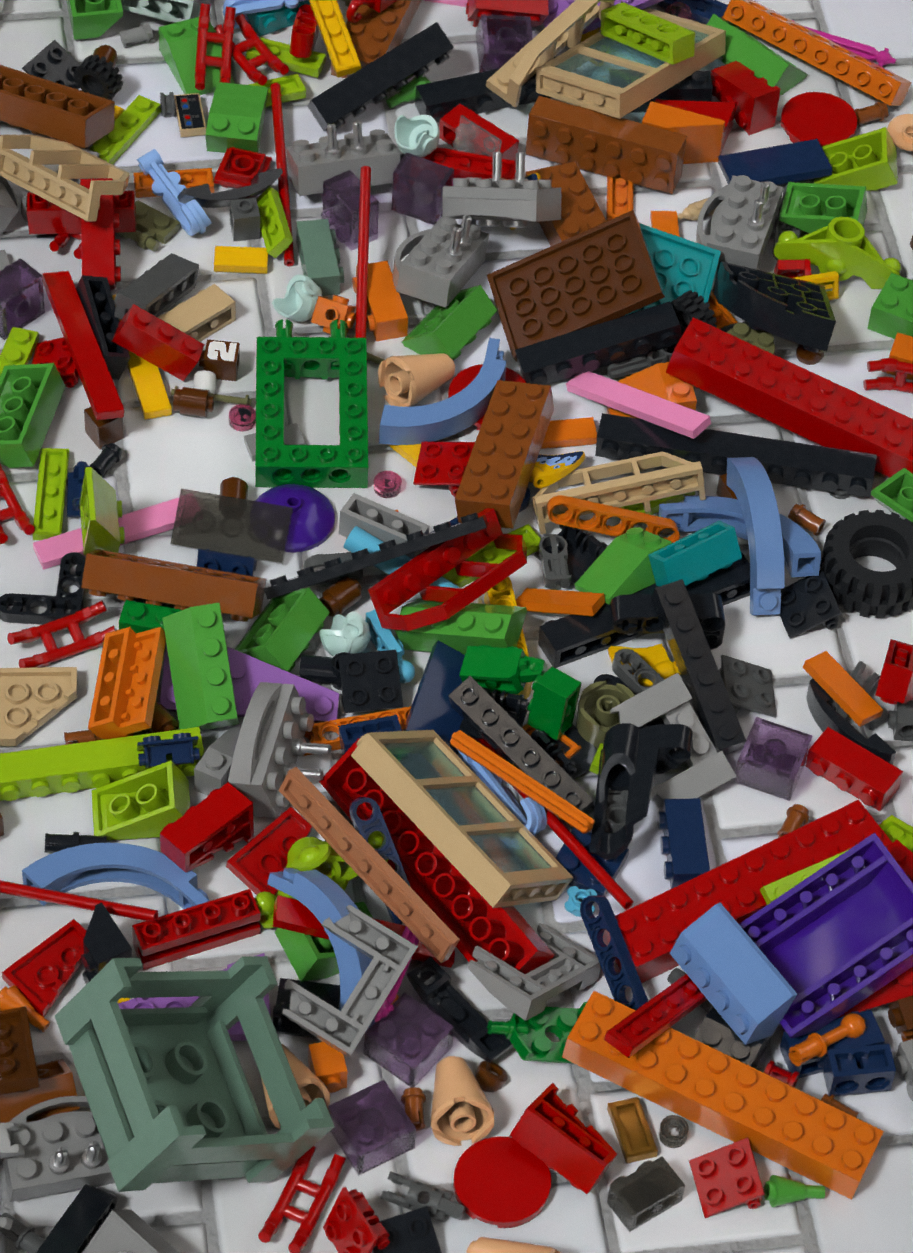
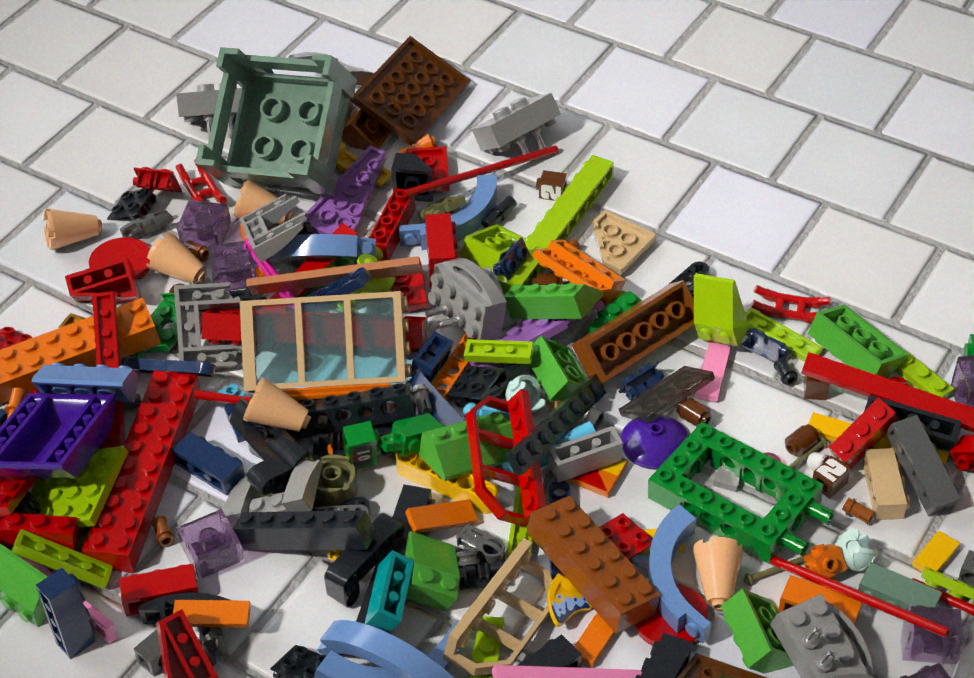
camera: 135 degrees right, 5 degrees down
(45, 633) = (645, 271): red piece -> none
(117, 884) = (443, 205): none -> olive plate
(242, 330) = (858, 510): none -> dark orange pin
(318, 674) = (499, 351): none -> lime plate
(387, 484) = (639, 506): clear pink tile -> none
(437, 704) = (422, 399): none -> light grey pin
(575, 552) = (467, 557): none -> dark grey bush
(600, 783) = (275, 408): none -> light nougat cone
(602, 514) = (475, 587): orange beam -> none
(645, 1193) = (42, 304): clear smoke brick -> none
(748, 686) = (279, 581): dark grey hinge -> none

